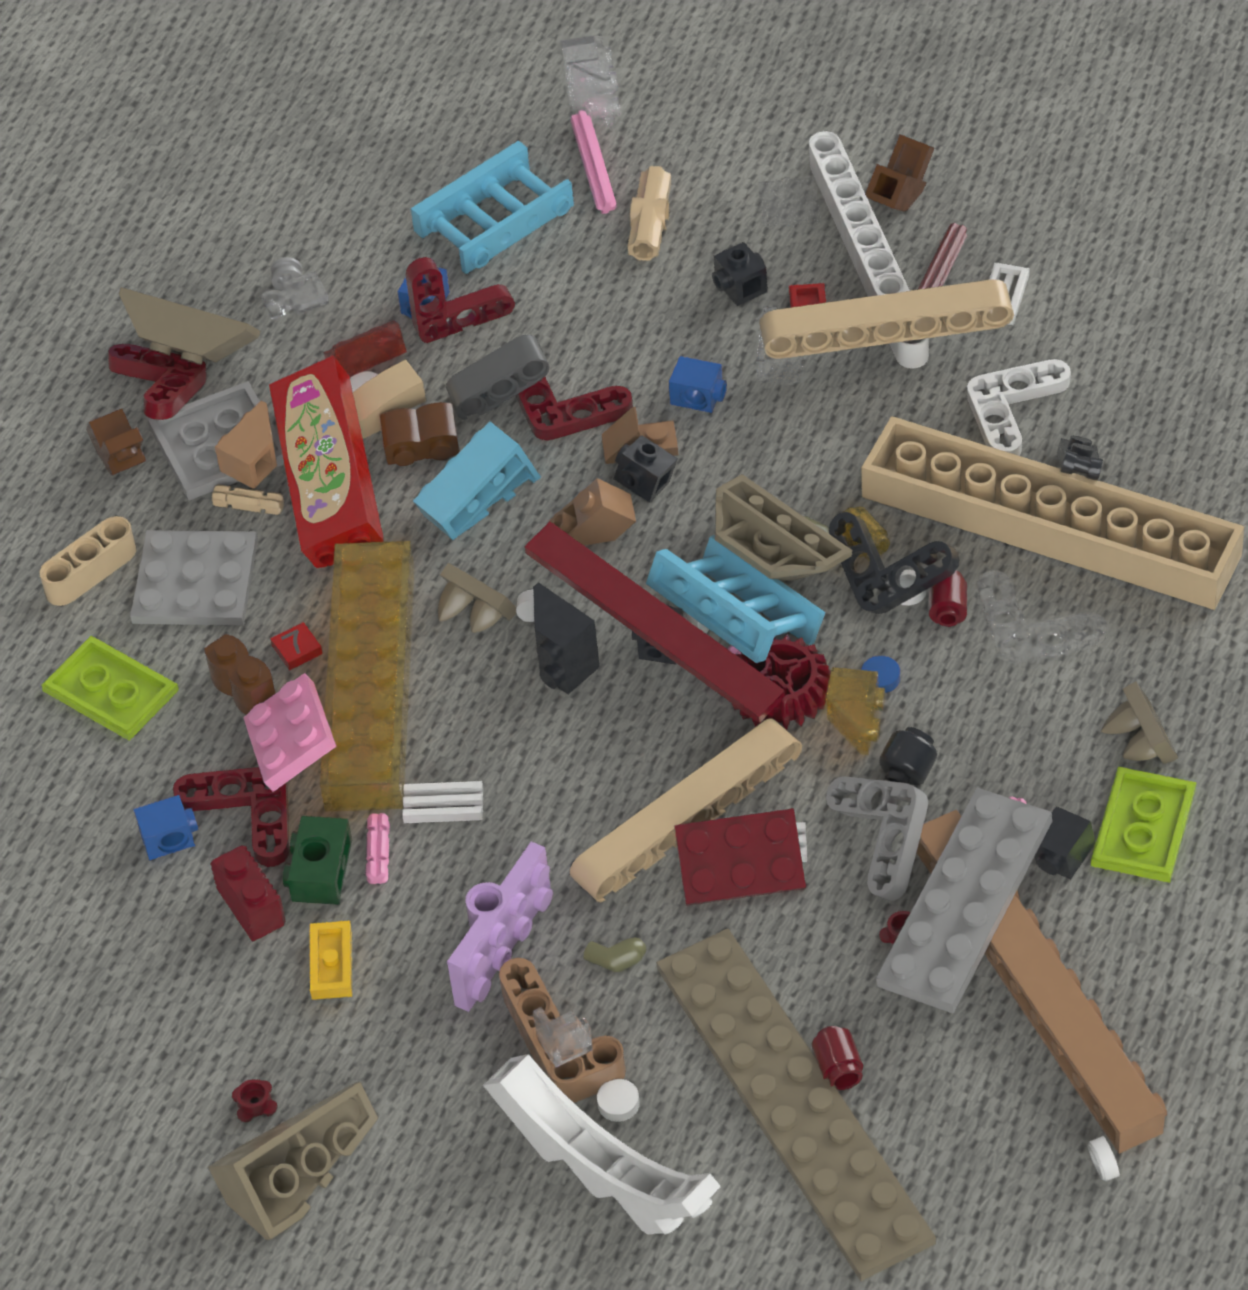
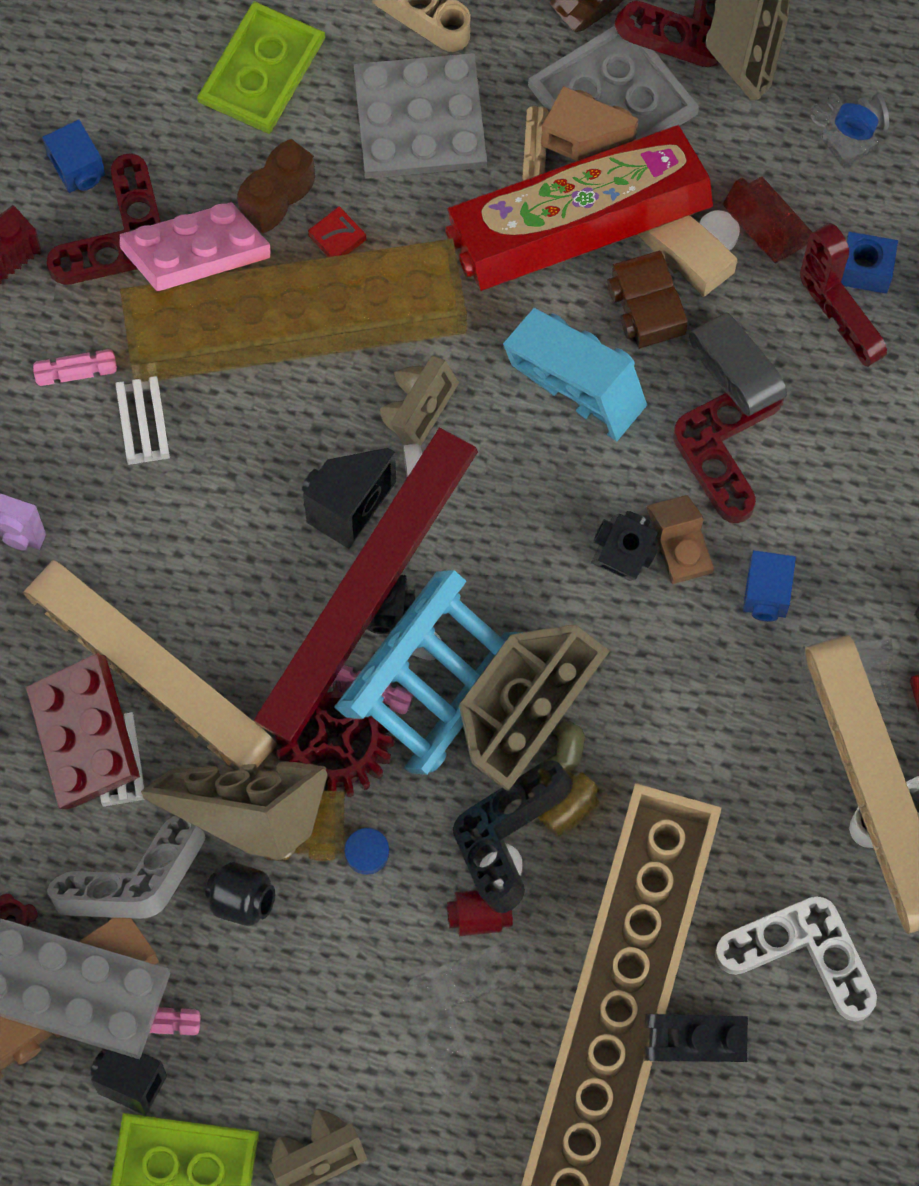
camera: 75 degrees right, 20 degrees up
(299, 273) = (856, 121): none -> blue tile
(318, 860) = (65, 324): dark green brick -> none
(597, 514) = (548, 504): medium nougat slope -> none
(839, 721) = (247, 808): none -> dark tan wedge

